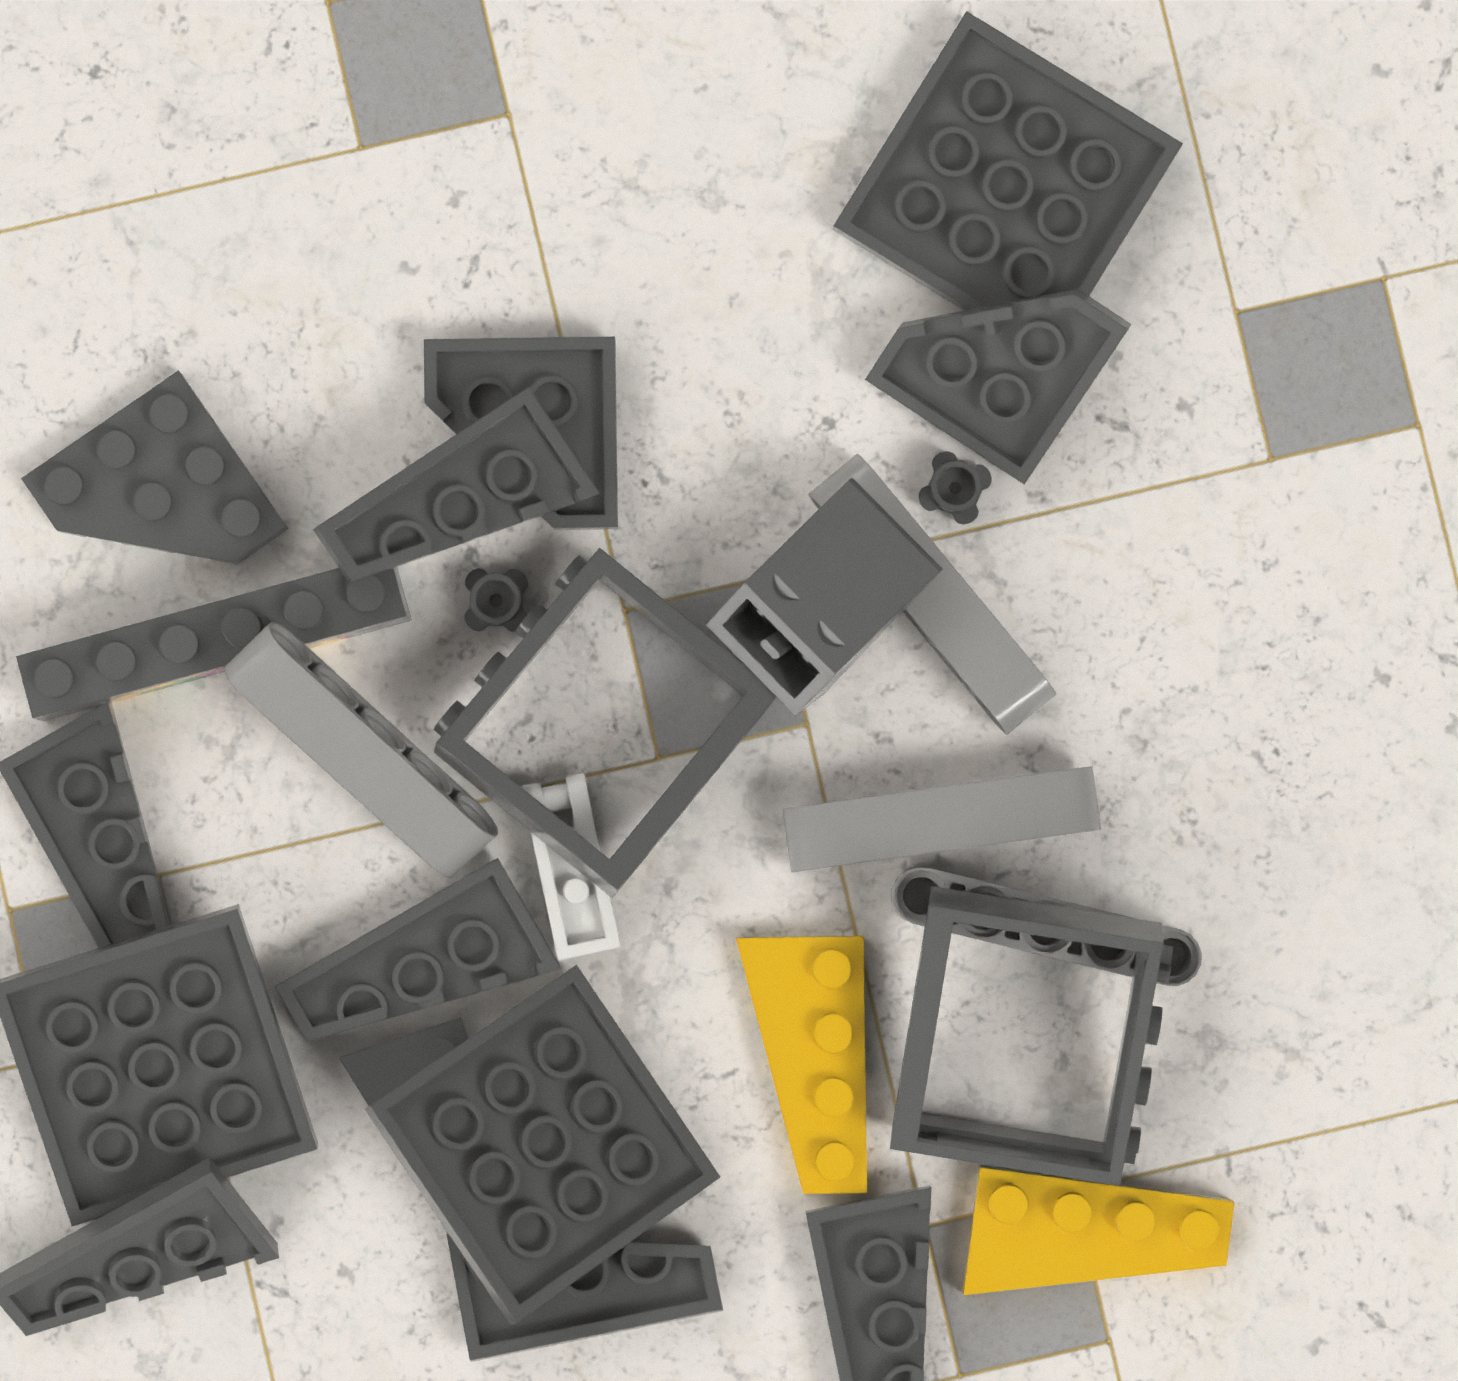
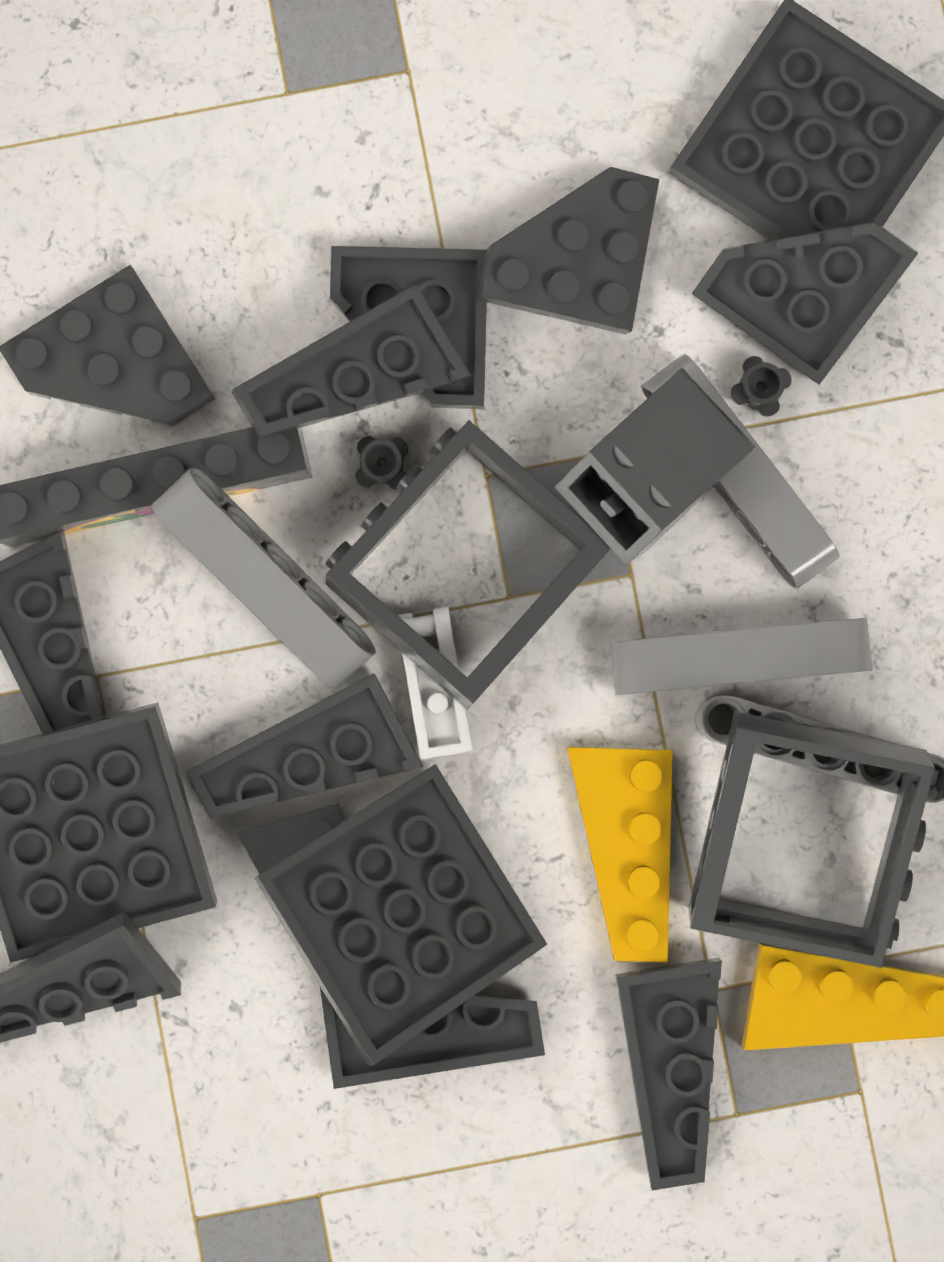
camera: 10 degrees right, 0 degrees up
(726, 337) = (578, 255): none -> dark grey plate

